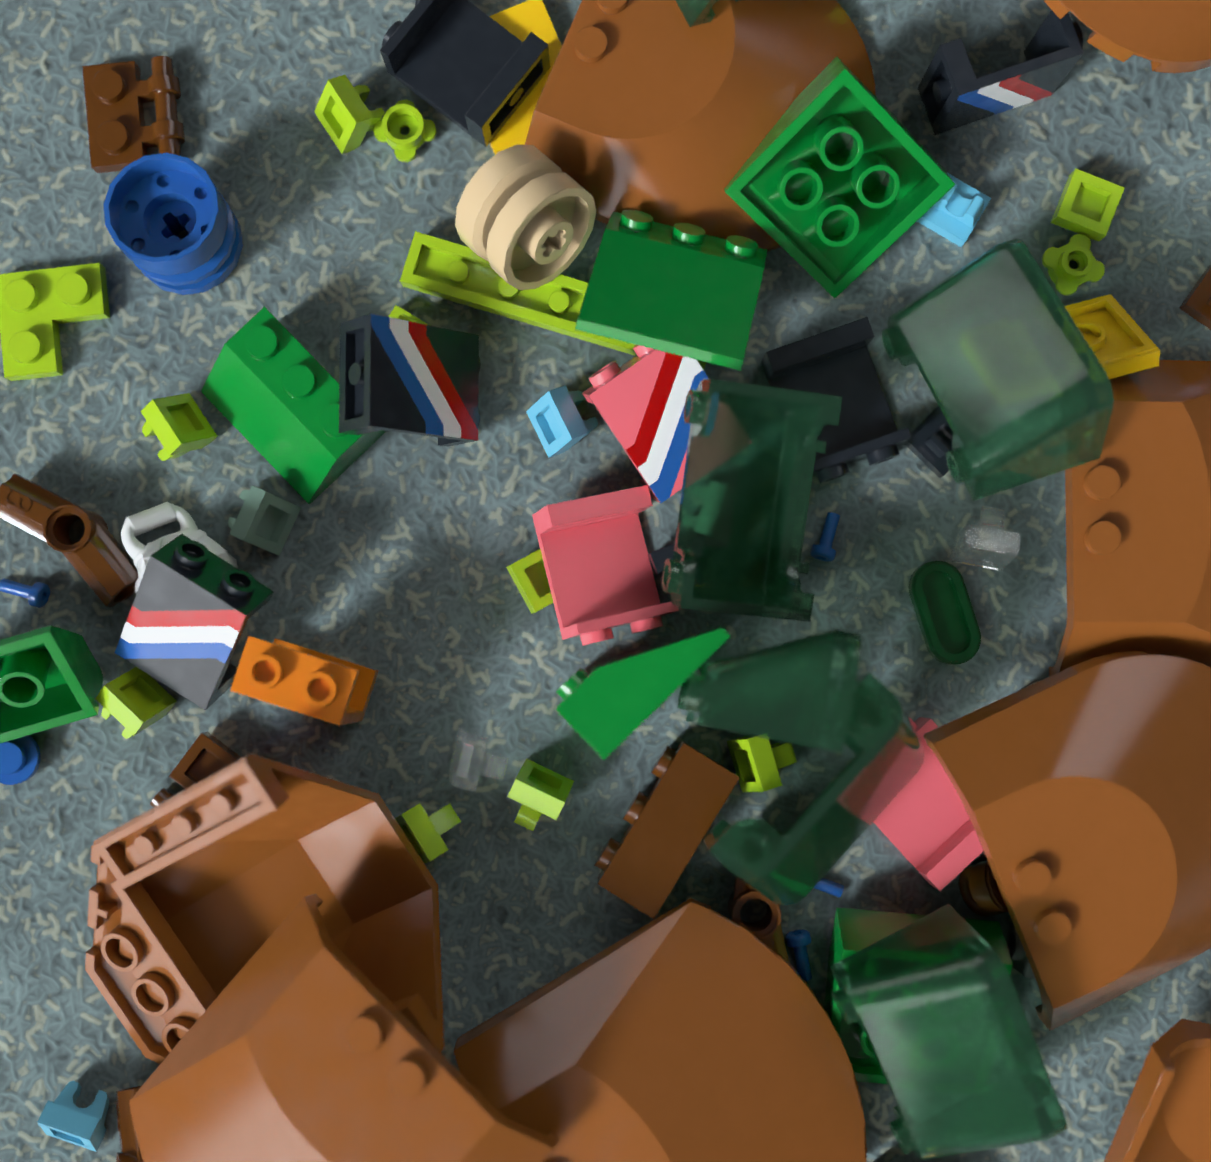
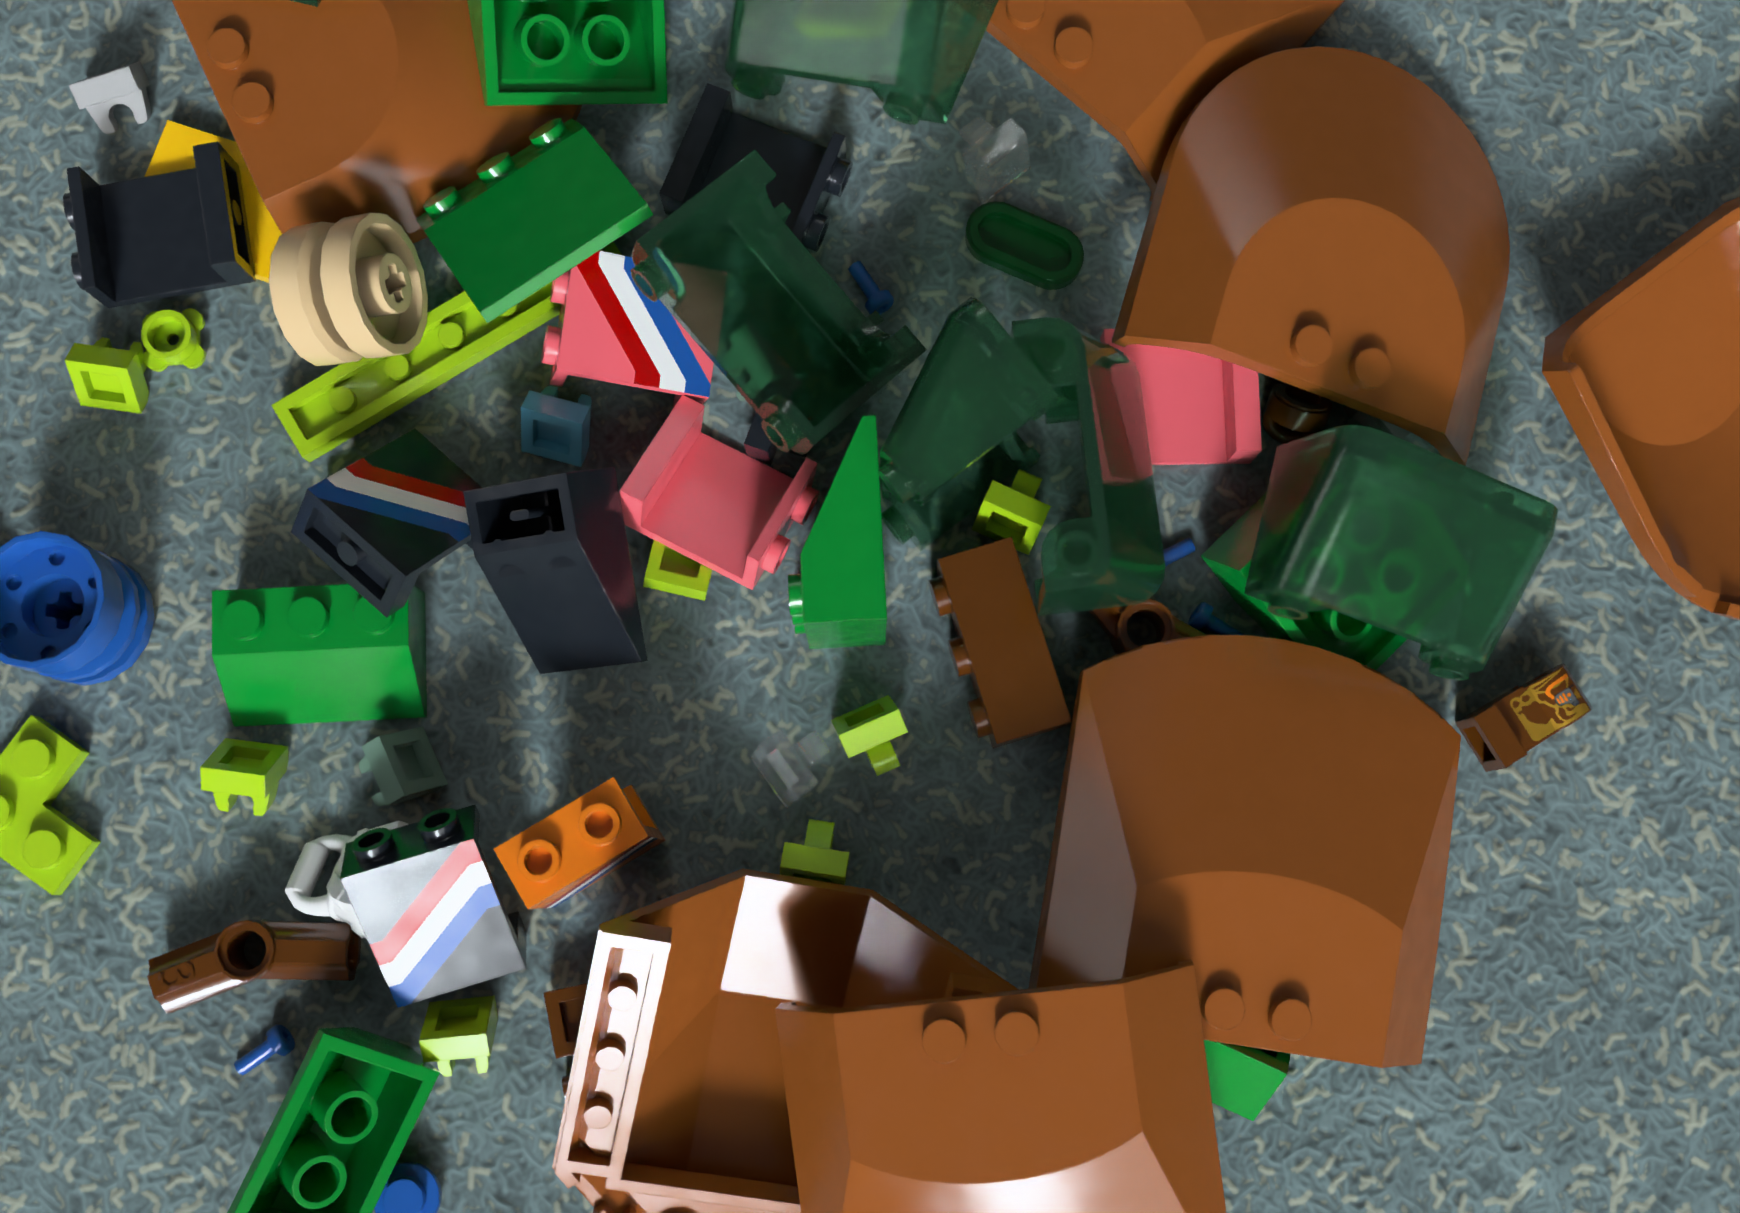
camera: 50 degrees left, 5 degrees down
(469, 508) = (561, 567): none -> black slope
(932, 441) = (867, 124): black tile -> none

